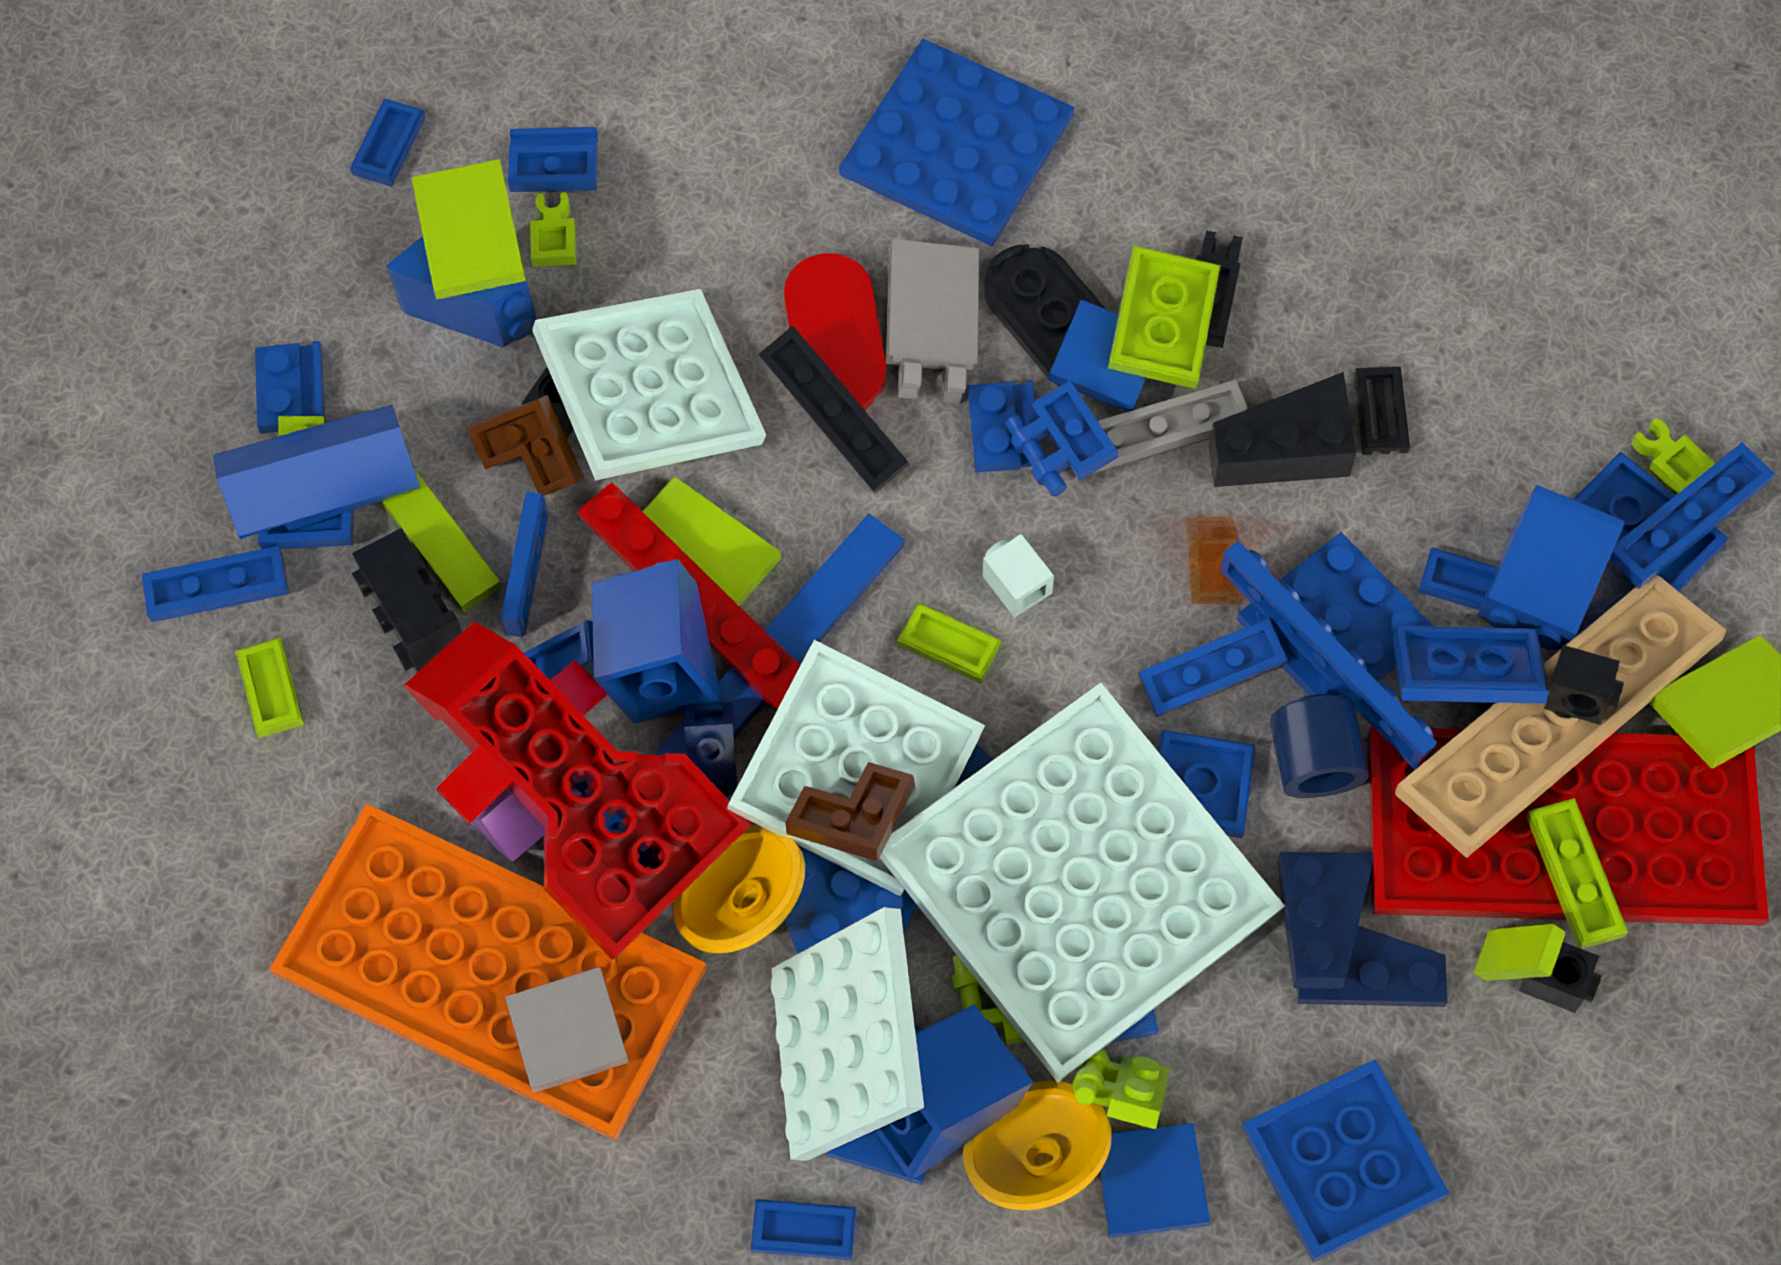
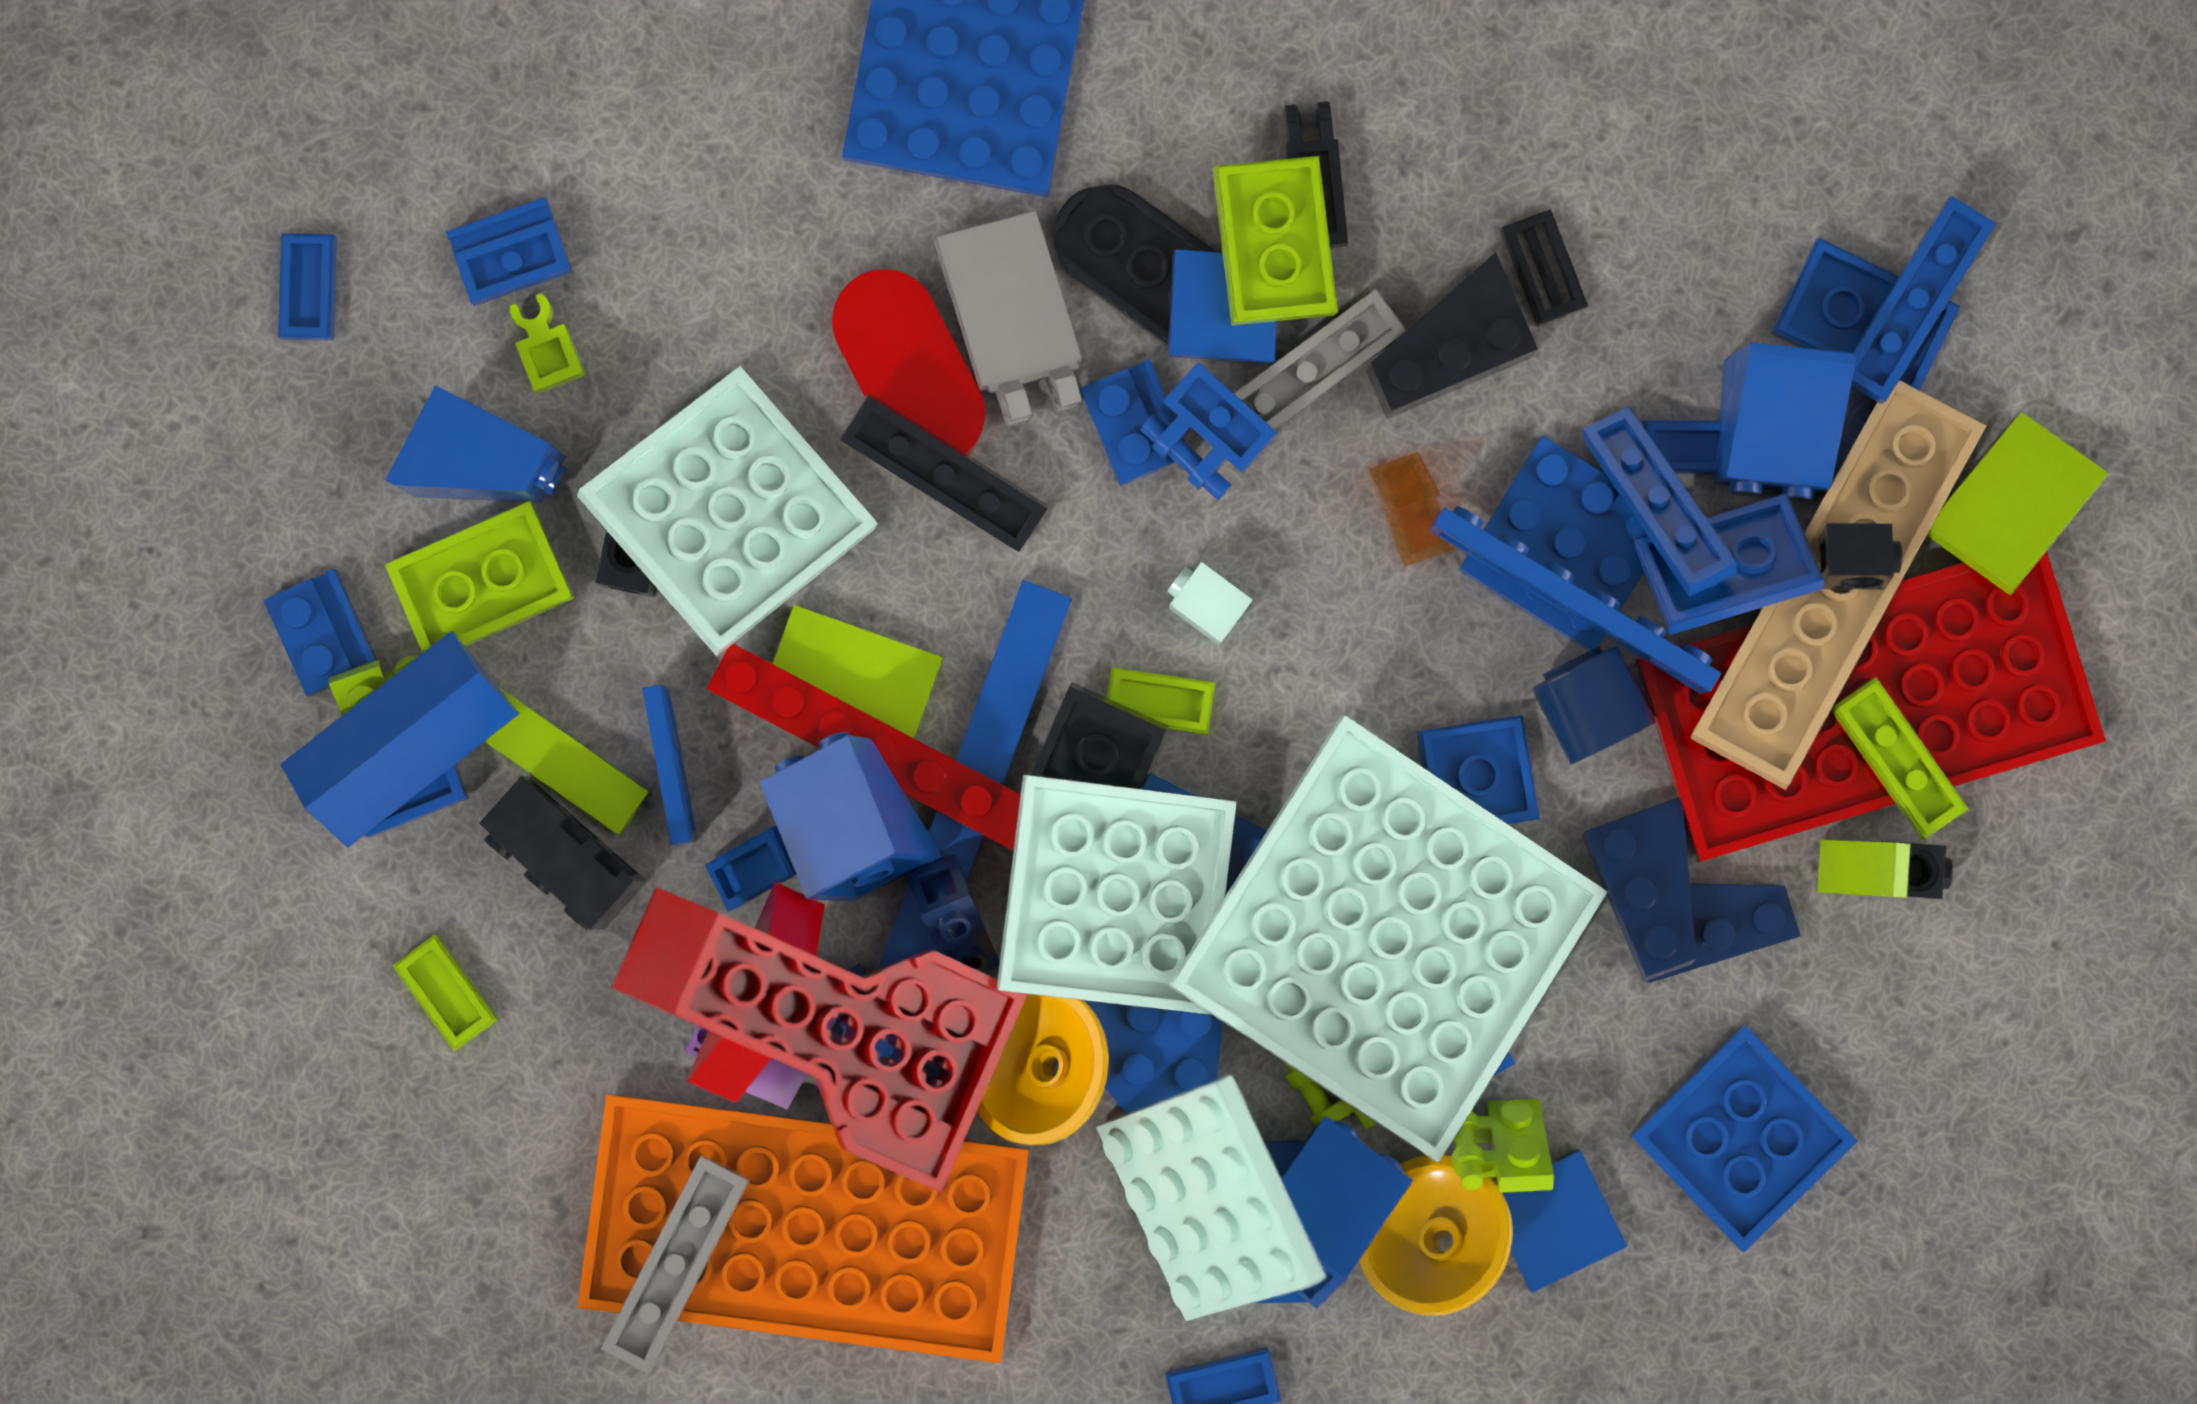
camera: 20 degrees left, 20 degrees up
(215, 584) = (338, 897): blue plate -> none
(366, 953) = (675, 1264): none -> light grey plate
(433, 381) = (480, 579): none -> lime plate
(468, 229) = (462, 408): lime tile -> none
(535, 435) = (625, 616): reddish brown plate -> none
(566, 1030) = (913, 1273): light grey tile -> none
(857, 823) = (1145, 972): reddish brown plate -> none
(891, 645) = (1099, 742): none -> black plate
(1212, 667) = (1452, 644): blue plate -> none
(1424, 600) = (1659, 501): none -> blue plate
(1675, 462) = (1885, 233): lime plate -> none

